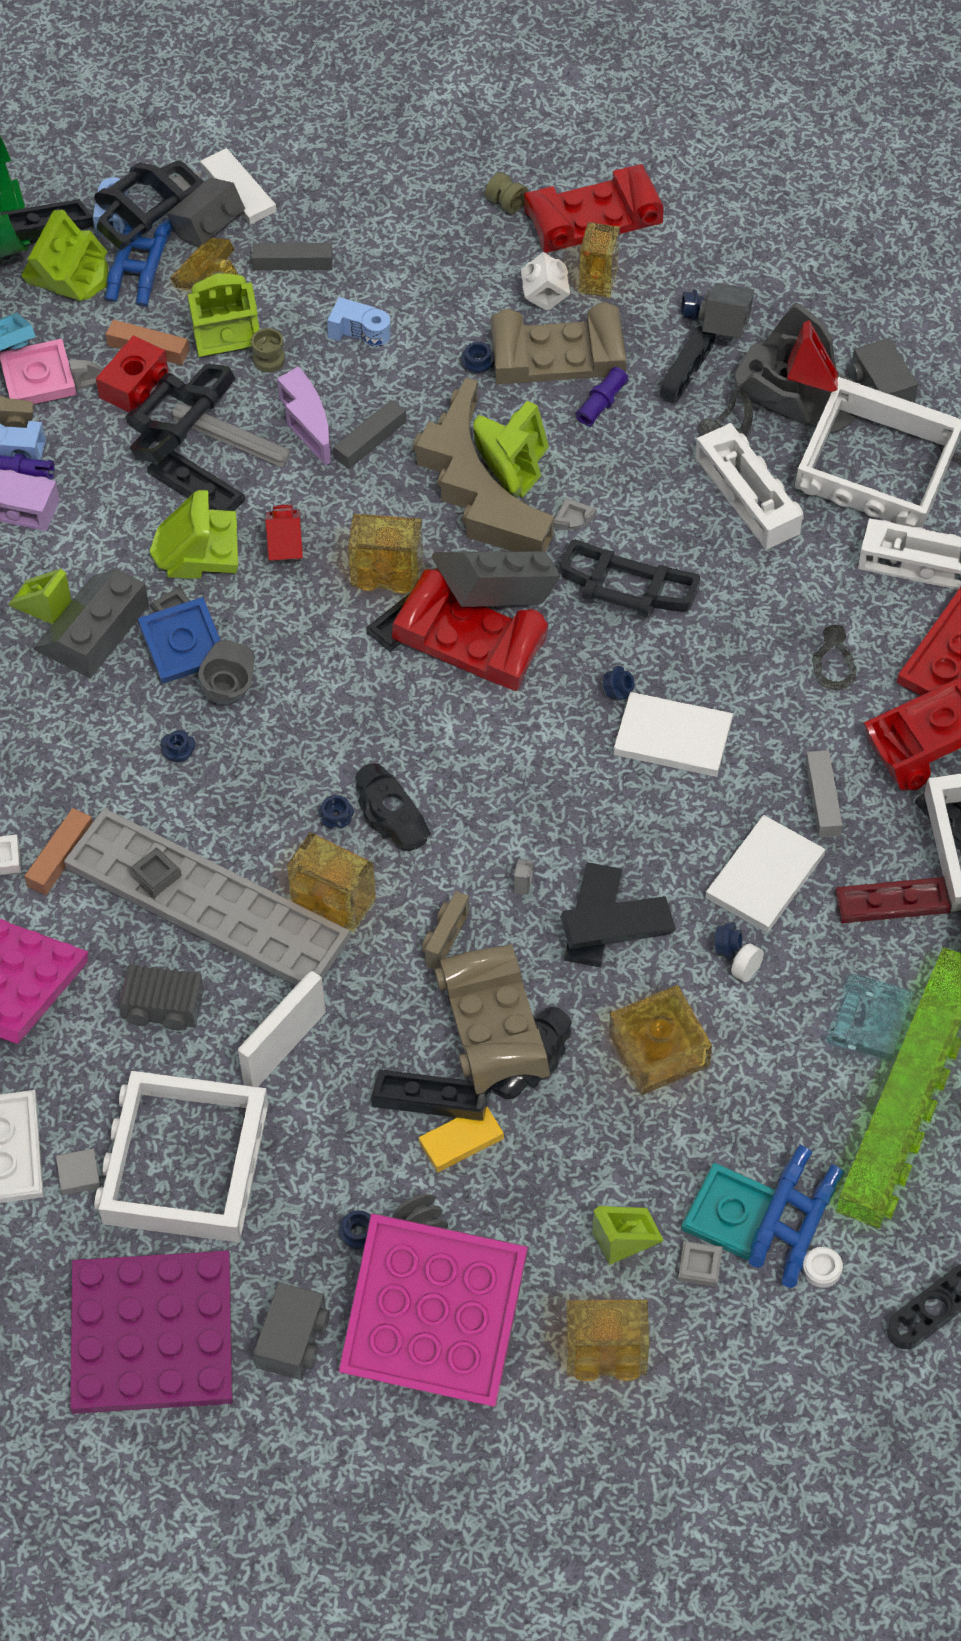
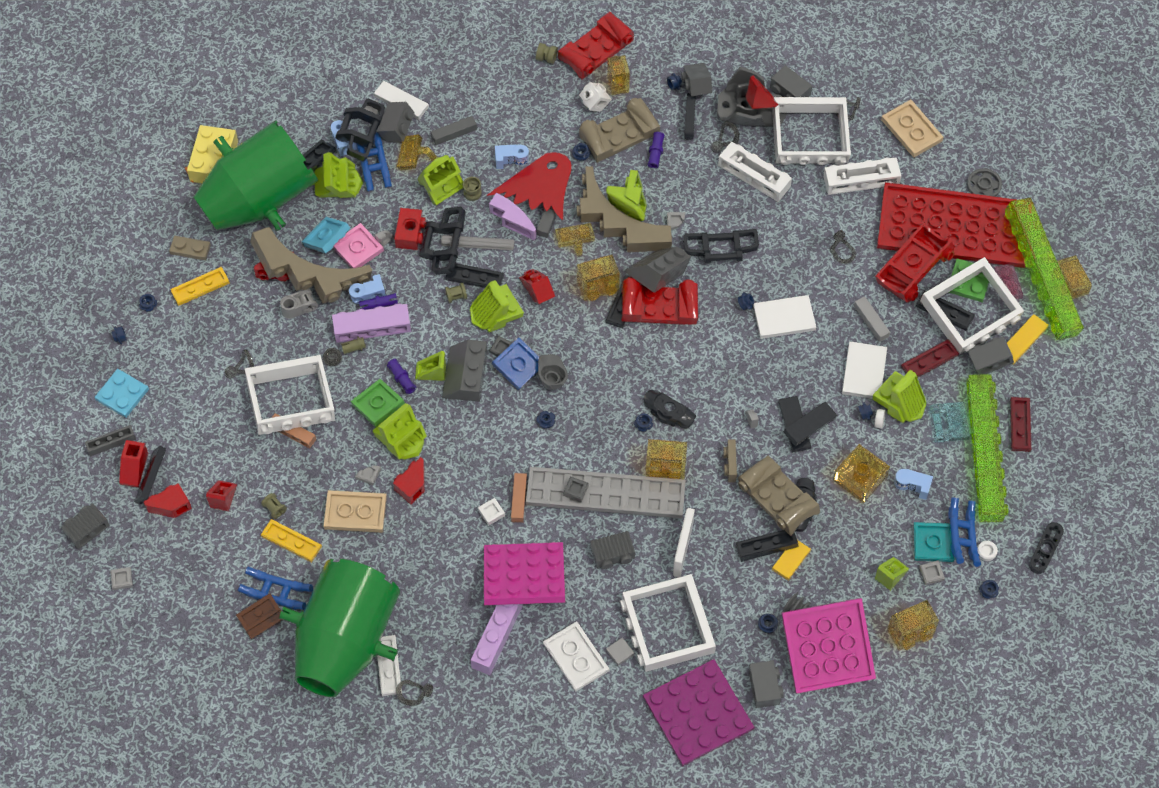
camera: 25 degrees left, 5 degrees up
(148, 496) = (456, 292): none -> olive bush
(175, 347) = (392, 208): nougat piece -> none
(382, 381) = (540, 183): none -> red piece
(393, 481) = (575, 236): none -> clear yellow plate
(751, 1092) = (913, 481): none -> light blue leg
(793, 1327) = (989, 584): none -> dark blue plate
(805, 941) = (902, 397): none -> lime piece

